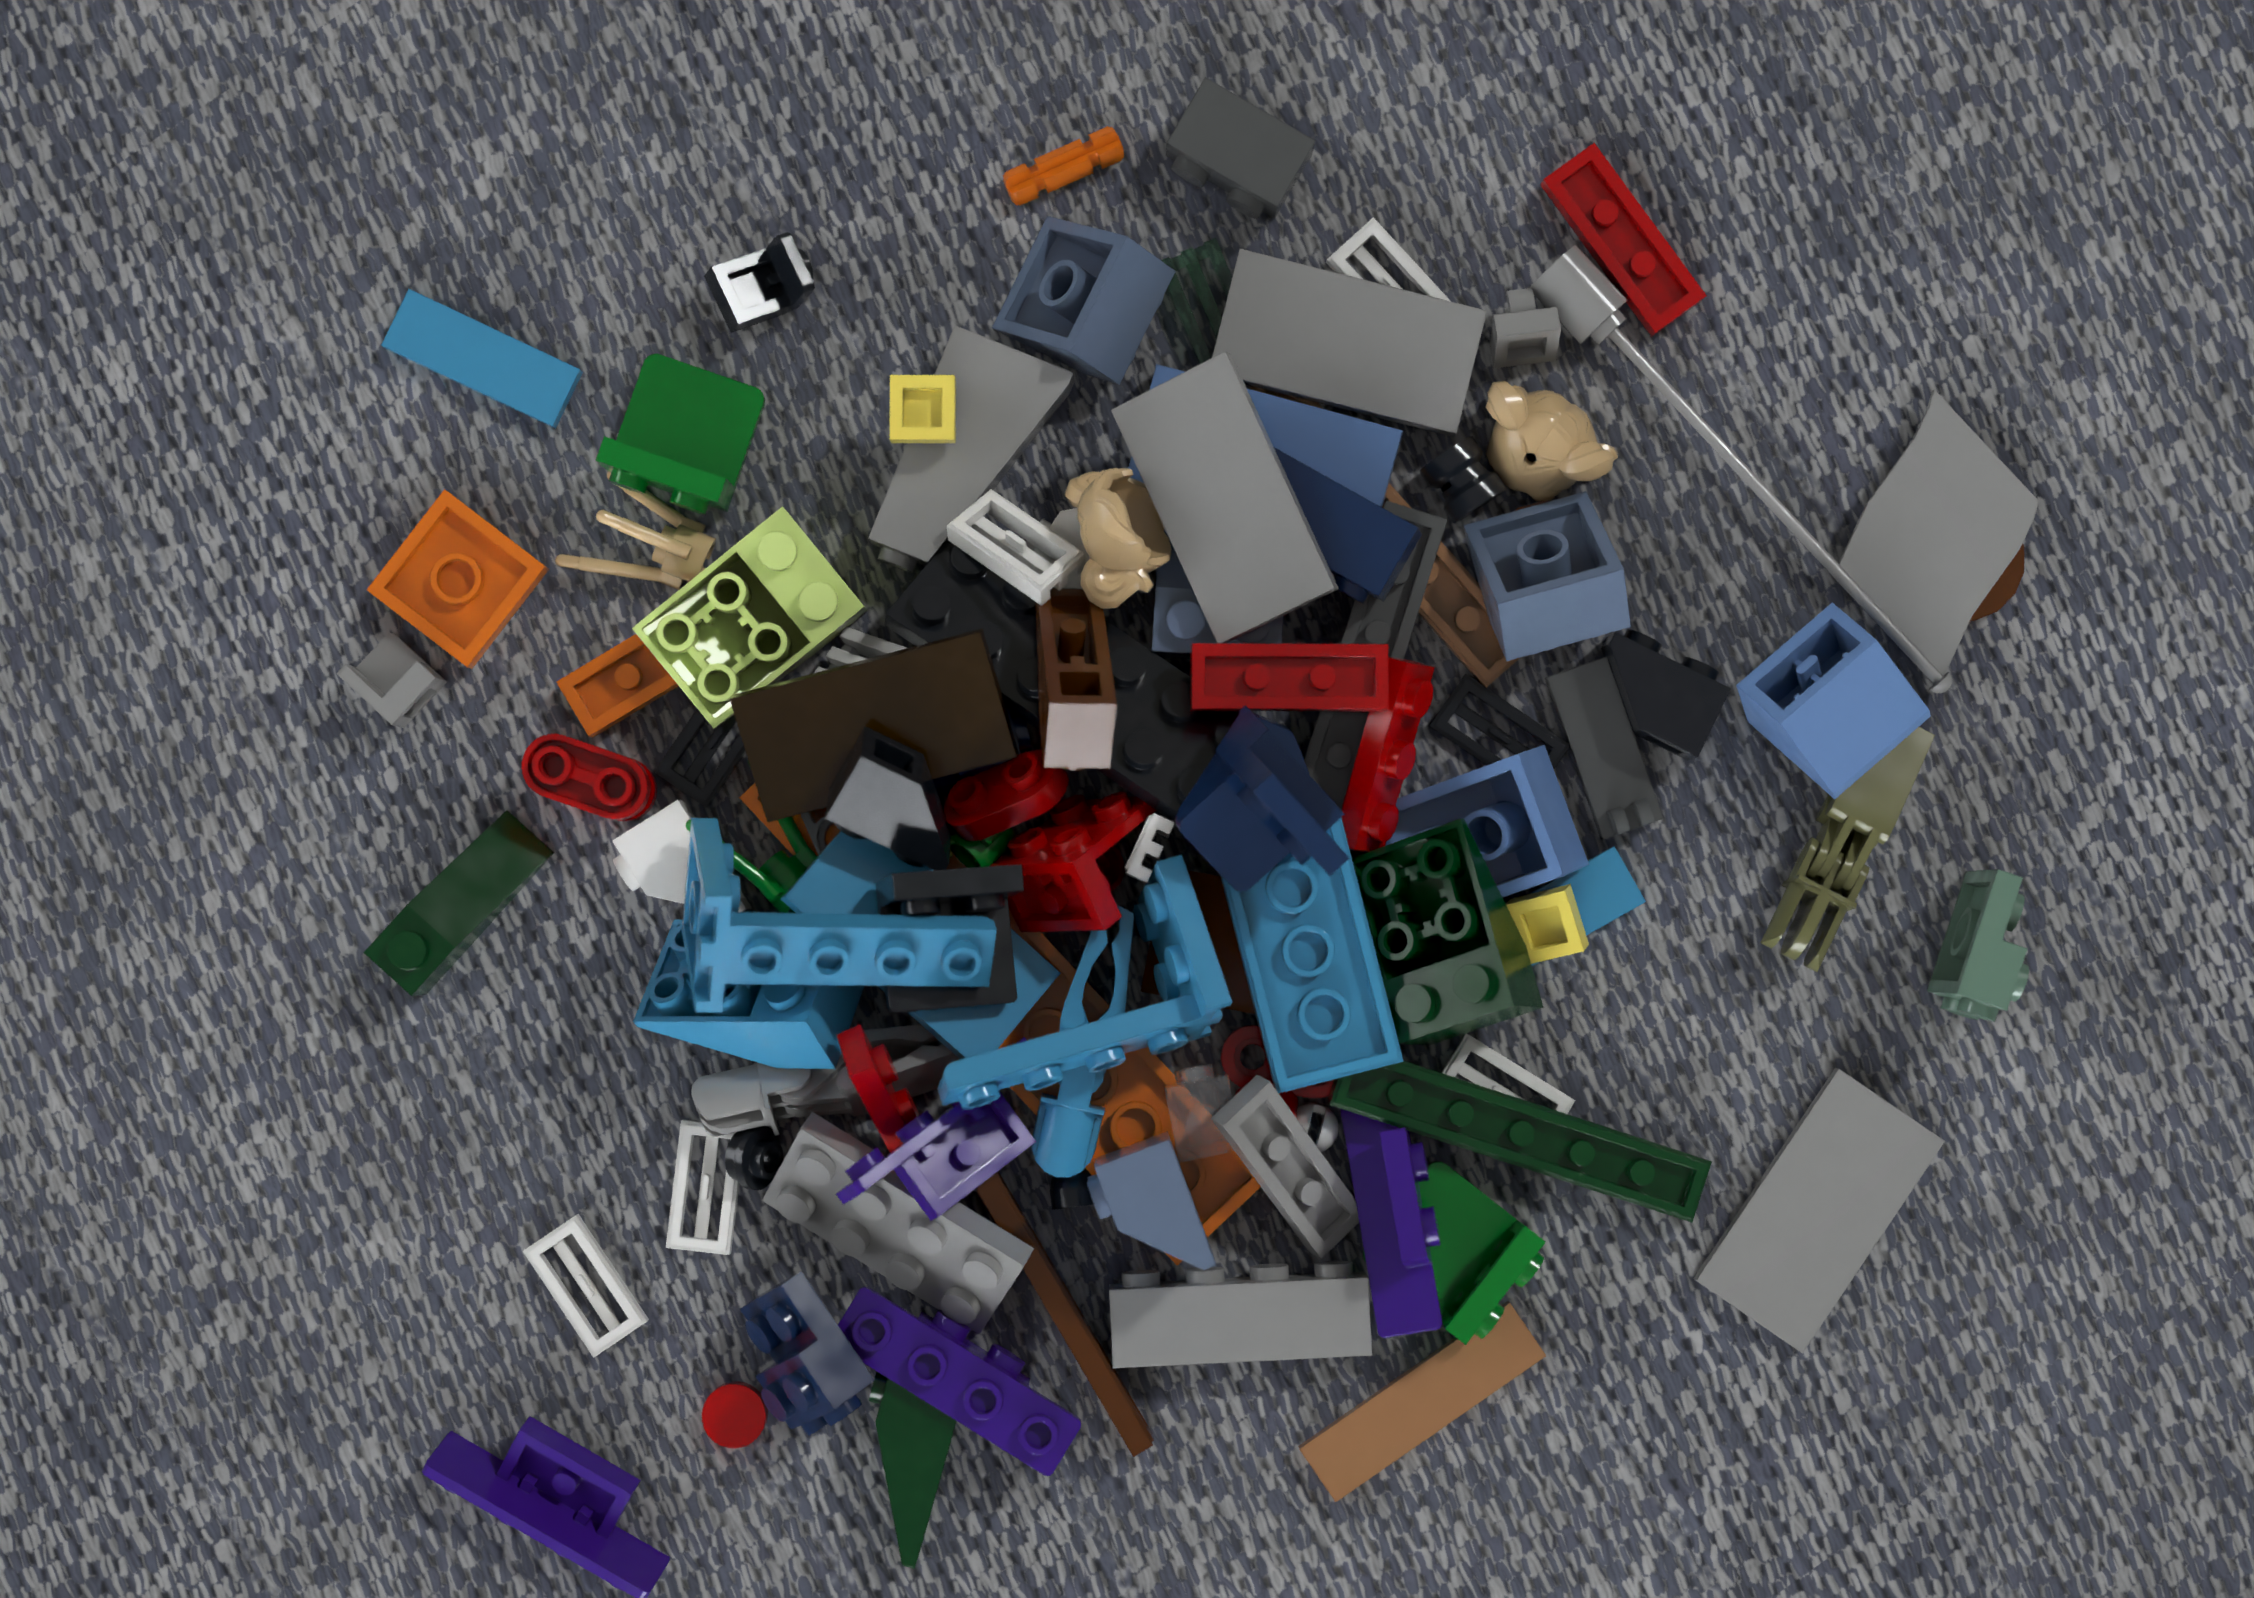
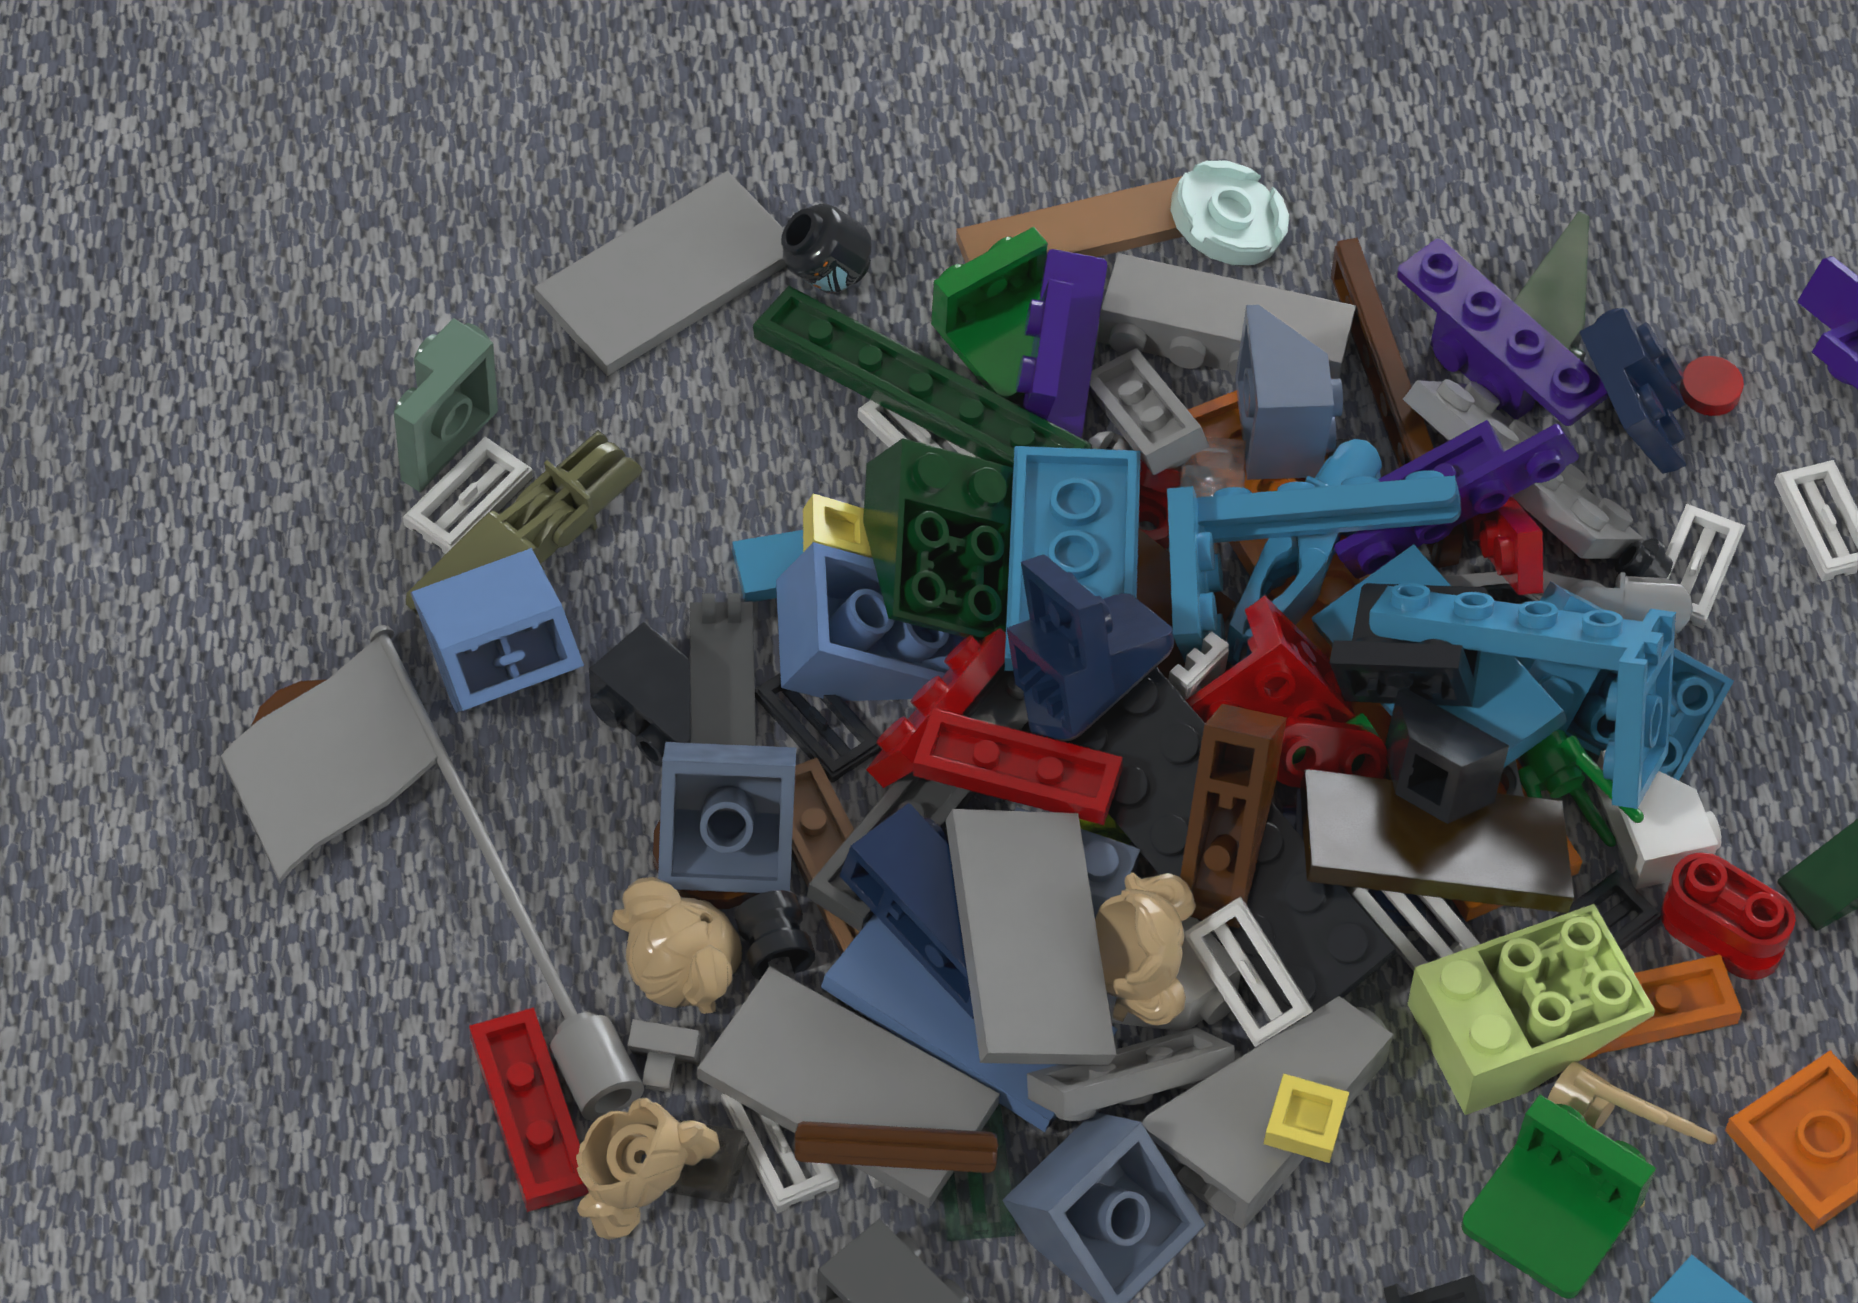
camera: 165 degrees left, 30 degrees down
(1087, 432) = (1132, 1076): none -> light grey plate
(1275, 1467) = (1229, 213): none -> light aqua tile
(1283, 277) = (896, 1146): none -> reddish brown axle
(1450, 235) = (717, 1176): none -> clear smoke plate
(1509, 199) = (613, 1167): none -> tan hair
(1669, 1274) = (826, 248): none -> black head
(1895, 865) = (437, 532): none -> white tile

